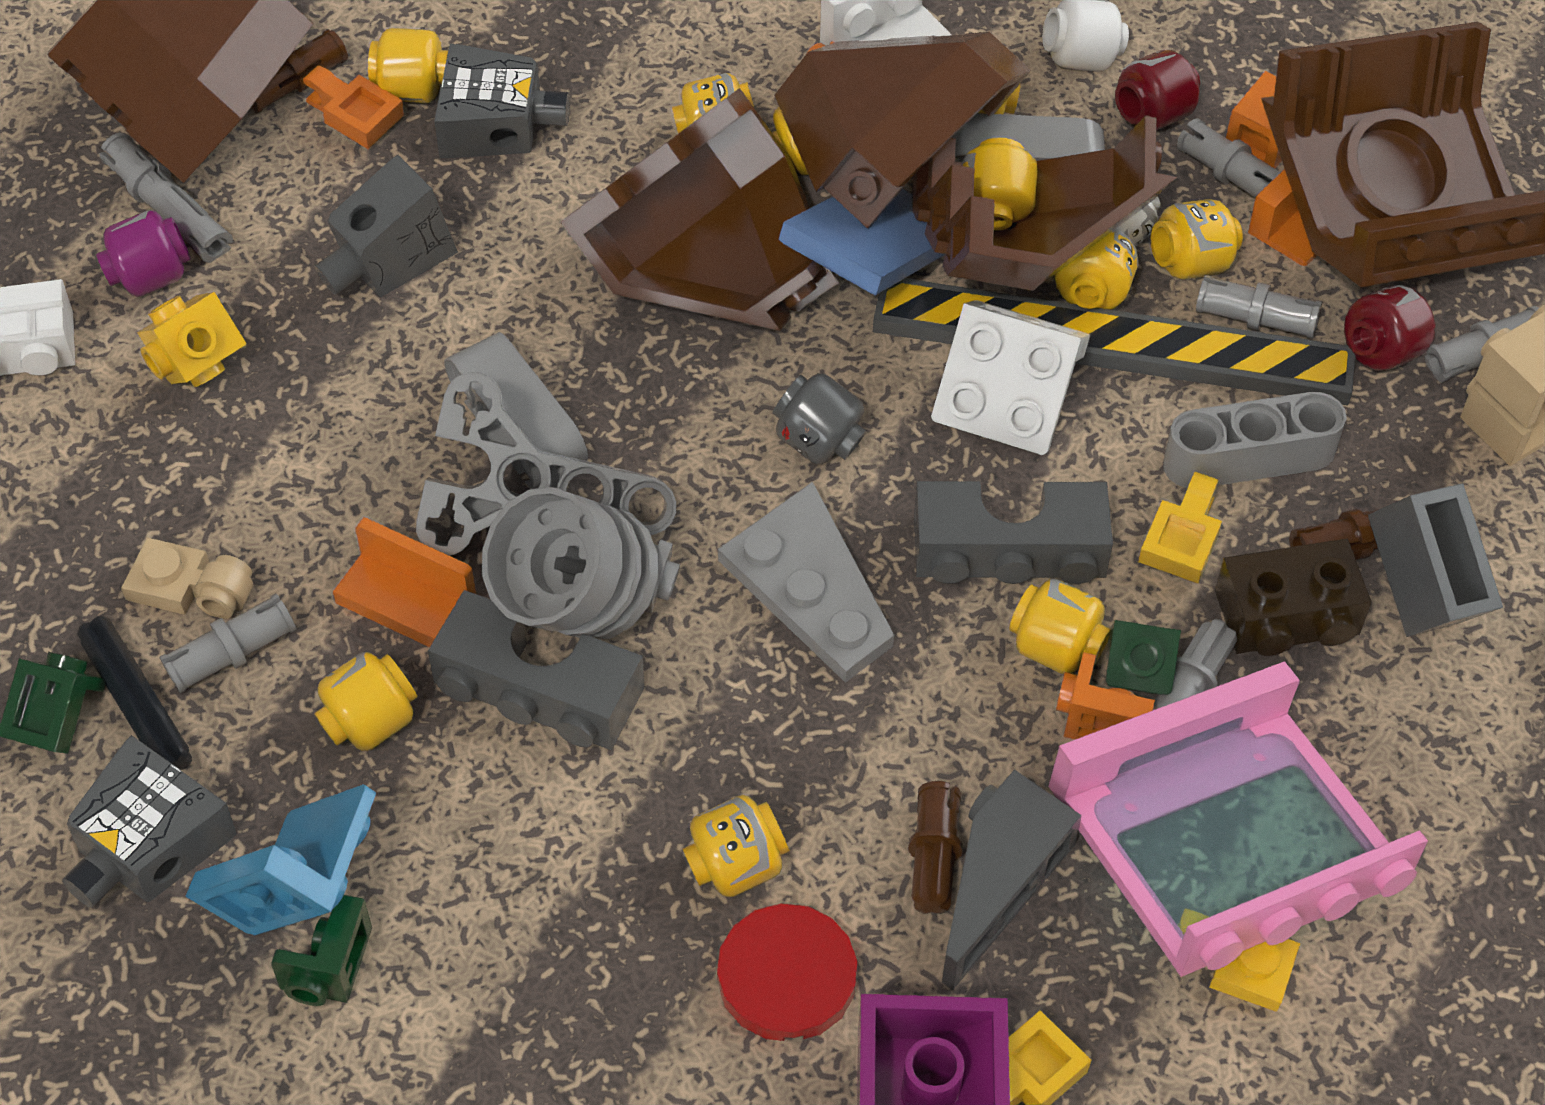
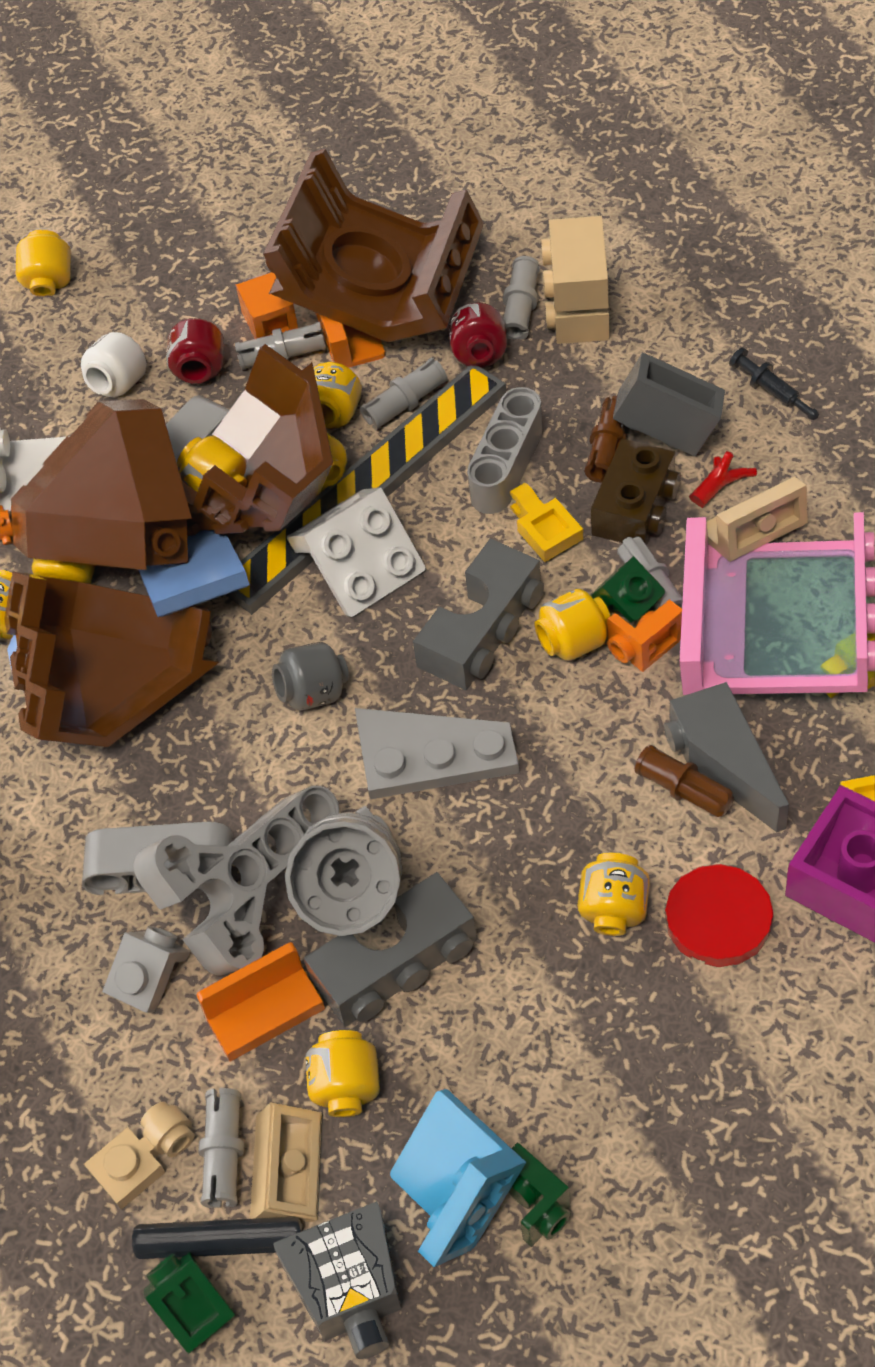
camera: 50 degrees left, 0 degrees up
(247, 714) = (286, 1163): none -> tan slope
(385, 465) = (144, 967): none -> light grey bracket
(1351, 744) = (759, 519): none -> tan panel
(1390, 676) = (718, 478): none -> red bar

